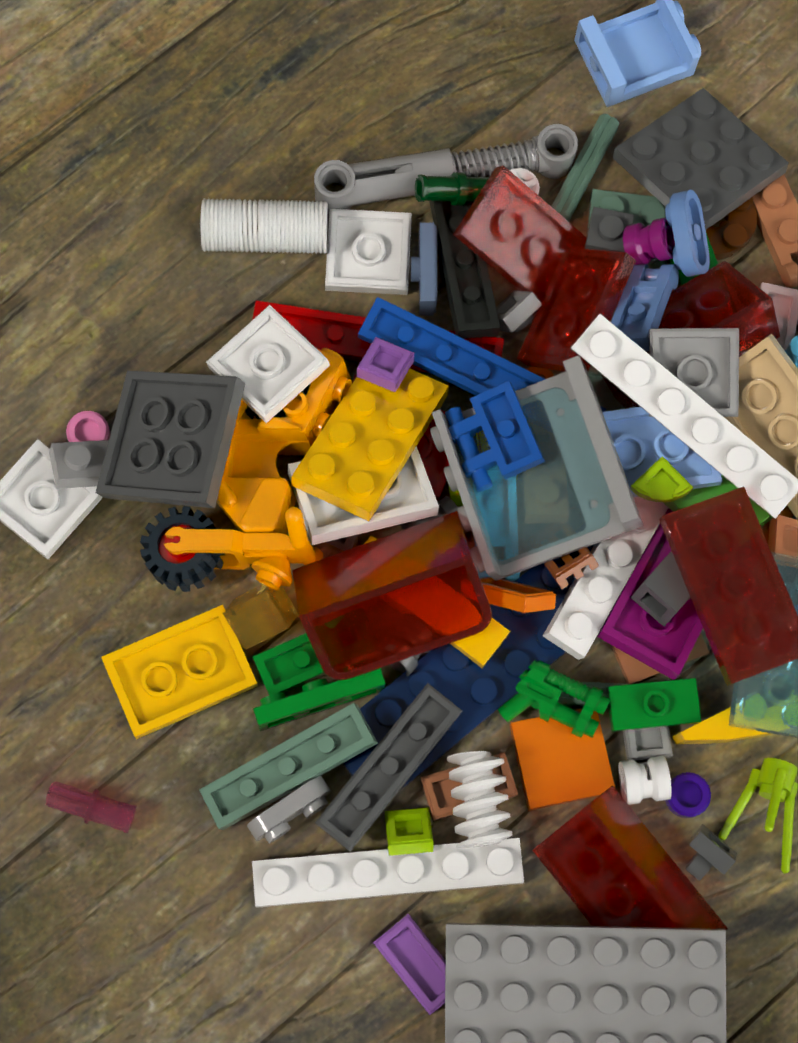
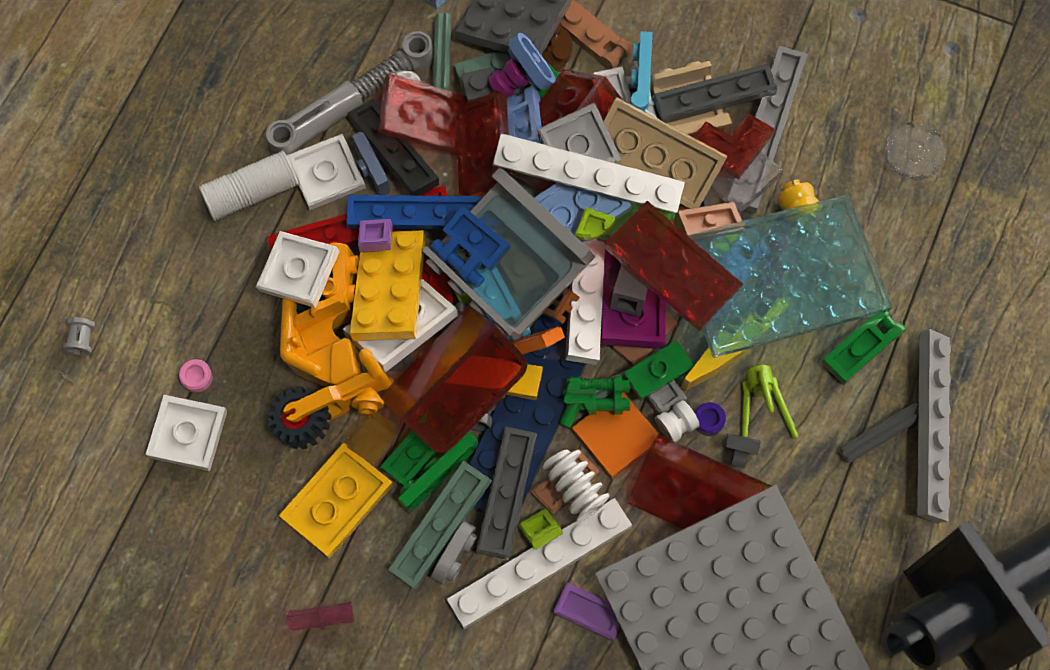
camera: 20 degrees left, 5 degrees down
(77, 463) = (211, 391): light grey plate -> none
(171, 438) = (256, 347): dark grey plate -> none
(451, 188) = (364, 103): dark green pin -> none
(517, 310) = (444, 163): light grey plate -> none

